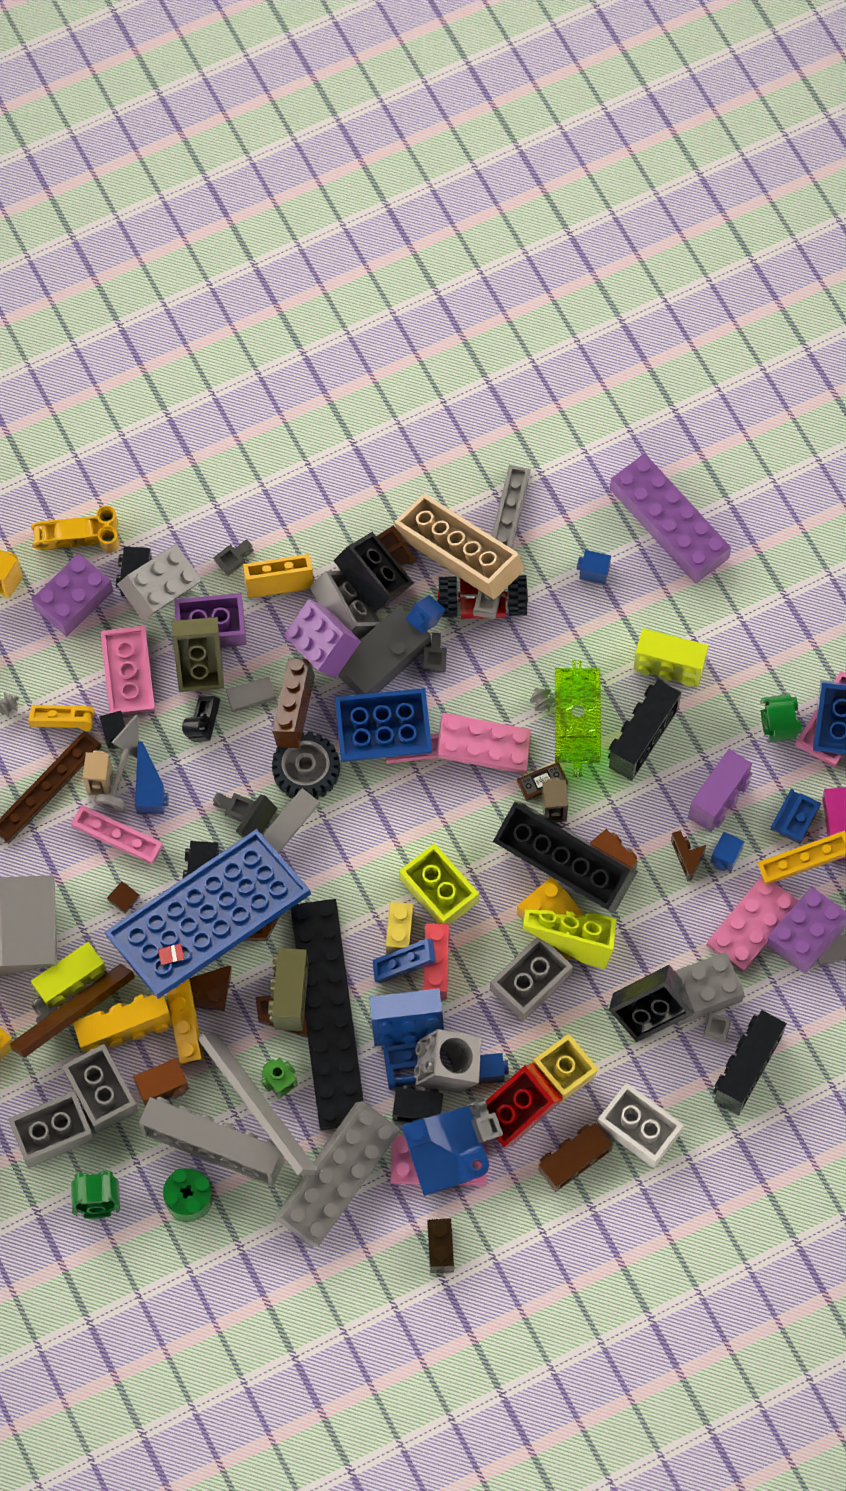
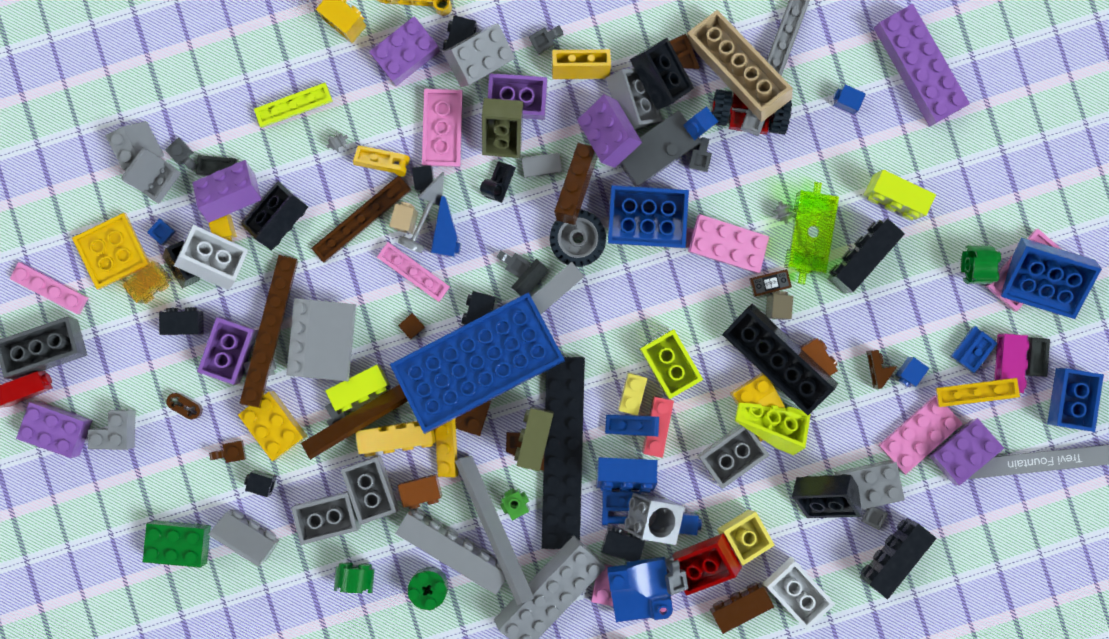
camera: 10 degrees right, 20 degrees up
(171, 954) = (441, 397): sticker -> none
(720, 791) = (918, 320): medium lavender brick -> none

